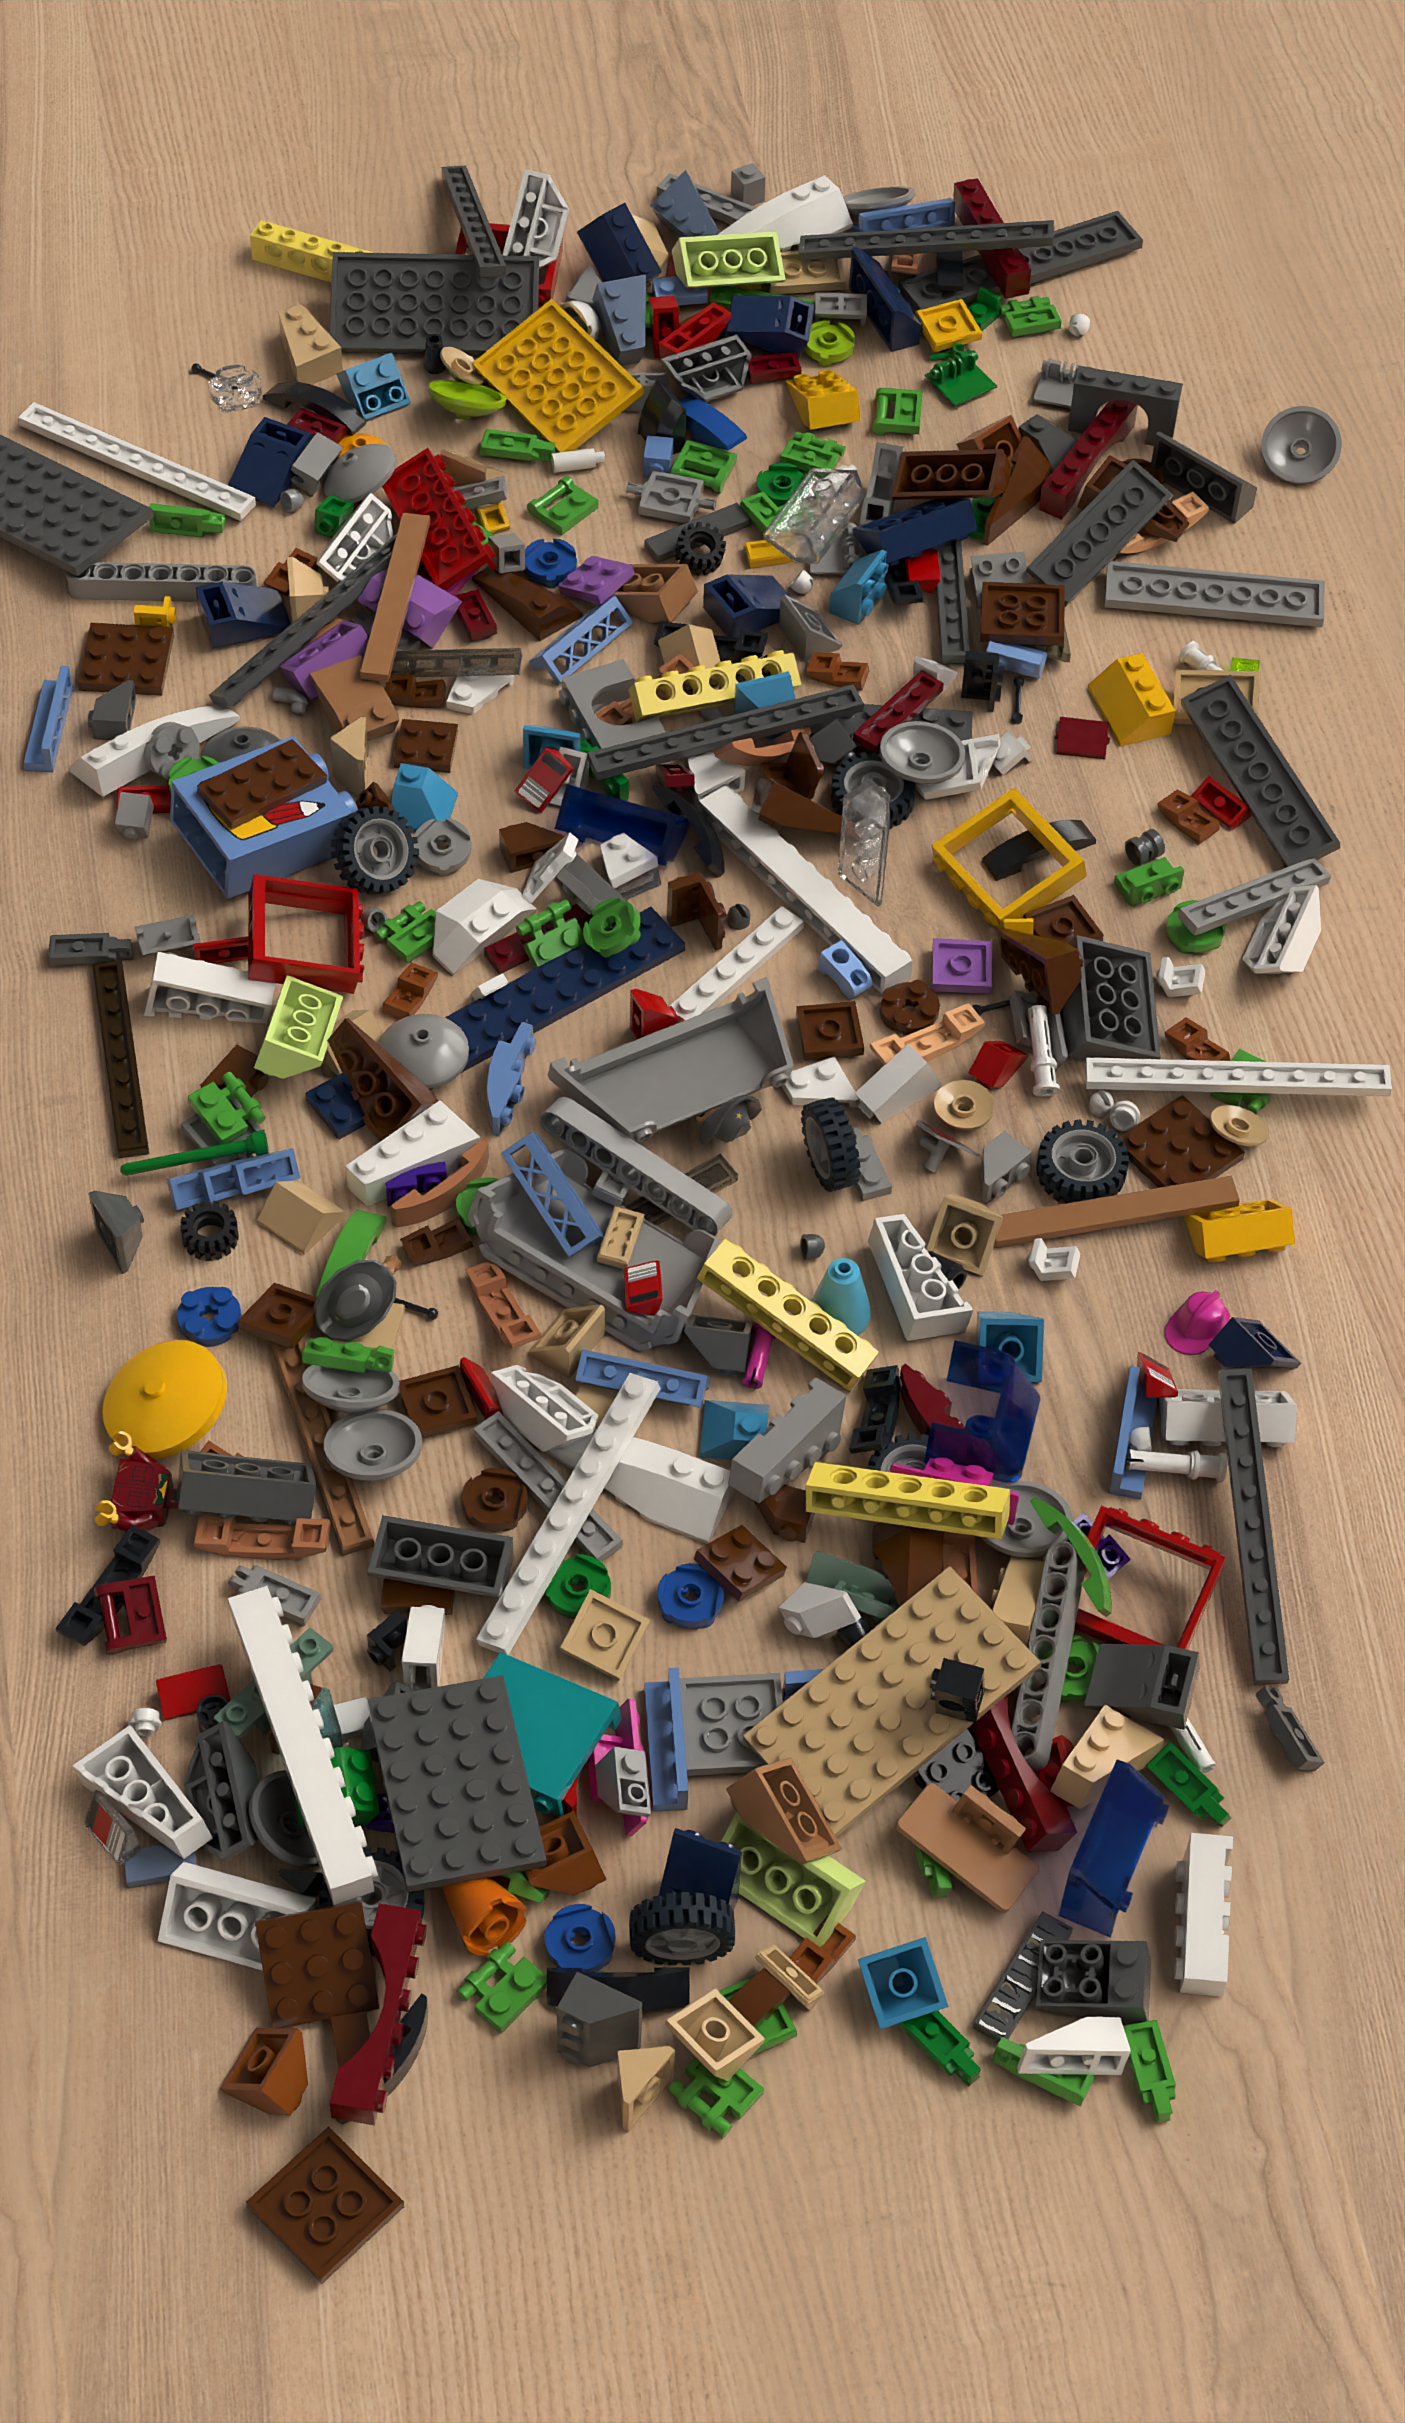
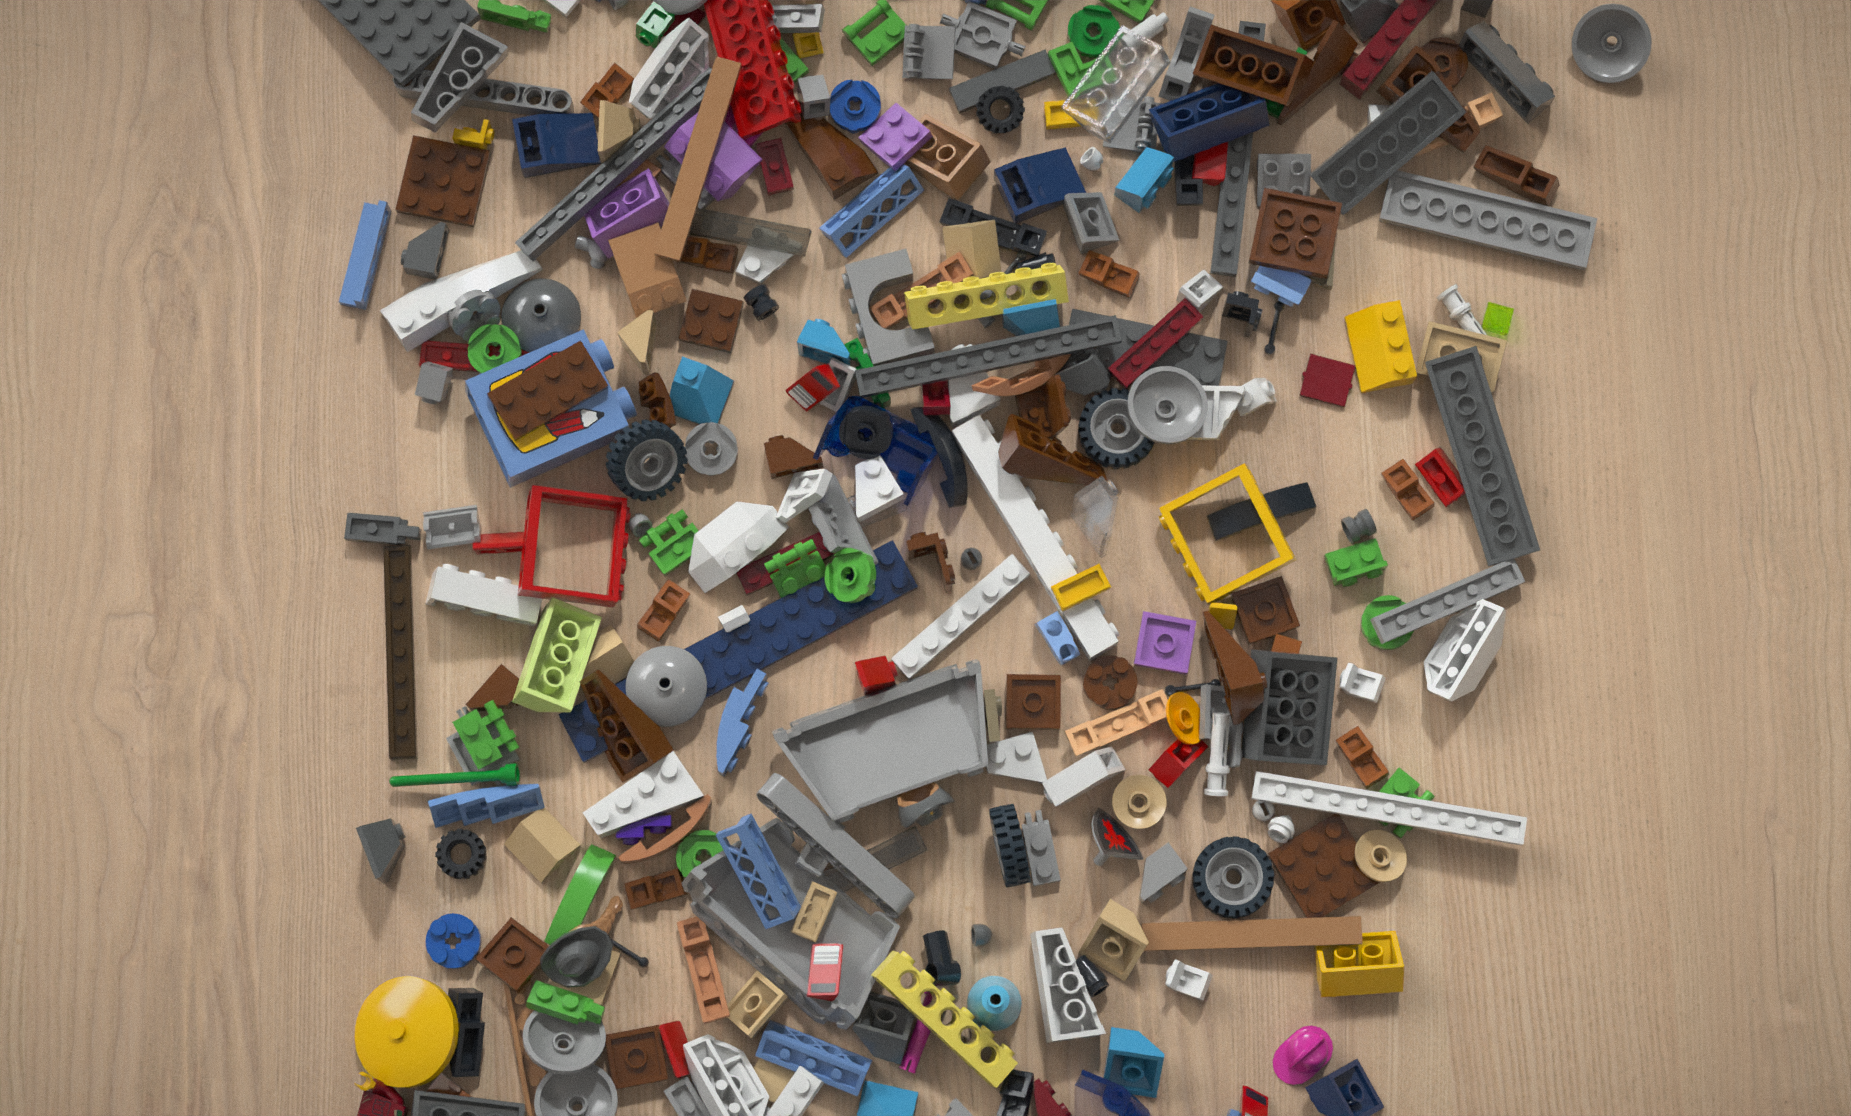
camera: 10 degrees right, 25 degrees up
(135, 553) = (459, 73): none -> light grey wedge
(238, 1413) = (468, 1050): none -> black slope
(480, 724) = (761, 302): none -> black wheel
(595, 797) = (871, 418): none -> black plate
(618, 510) = (928, 52): none -> light grey hinge
(766, 1253) = (940, 960): none -> black piece
(790, 1025) = (992, 710): none -> dark tan wing
(862, 916) = (1081, 587): none -> yellow tile
(996, 1024) = (1184, 717): none -> light orange dish
(1234, 556) = (1517, 175): none -> reddish brown slope

